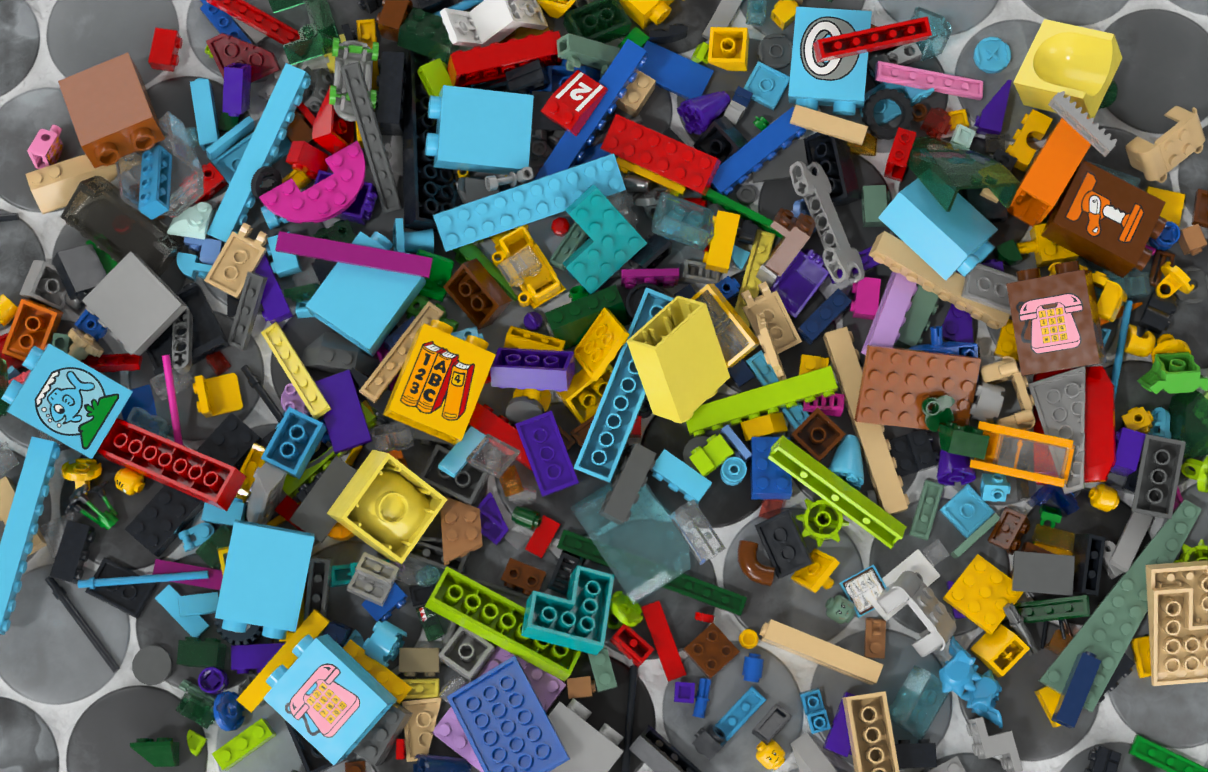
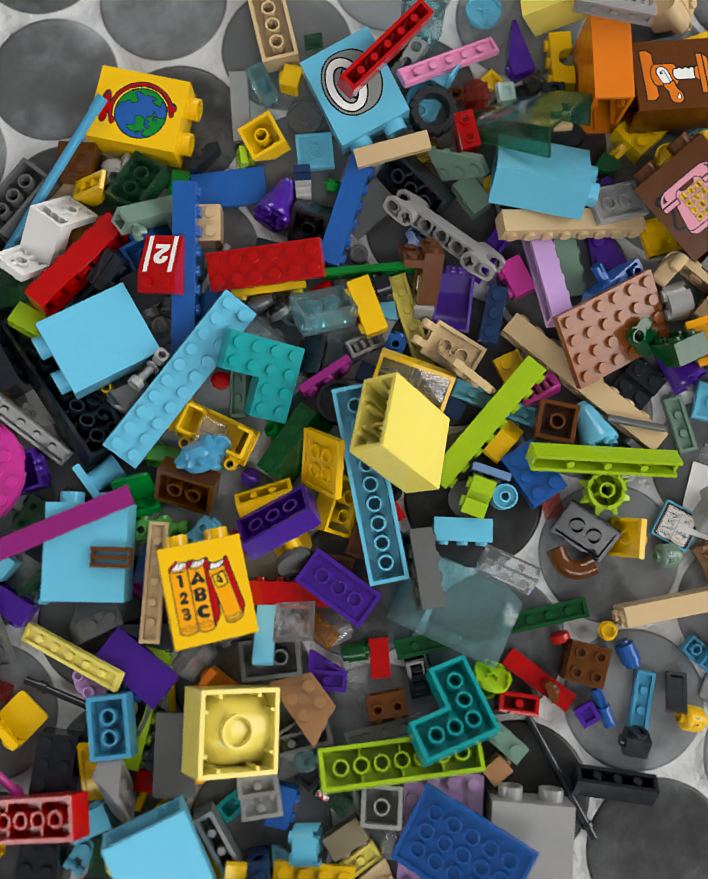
camera: 30 degrees left, 5 degrees up
(370, 297) = (93, 557): none -> reddish brown tile
(508, 275) = (203, 454): none -> dark azure head
(667, 652) = (551, 690): none -> reddish brown plate
(875, 172) = (458, 165): none -> sand green wing
(885, 480) = (636, 423): none -> dark grey bar

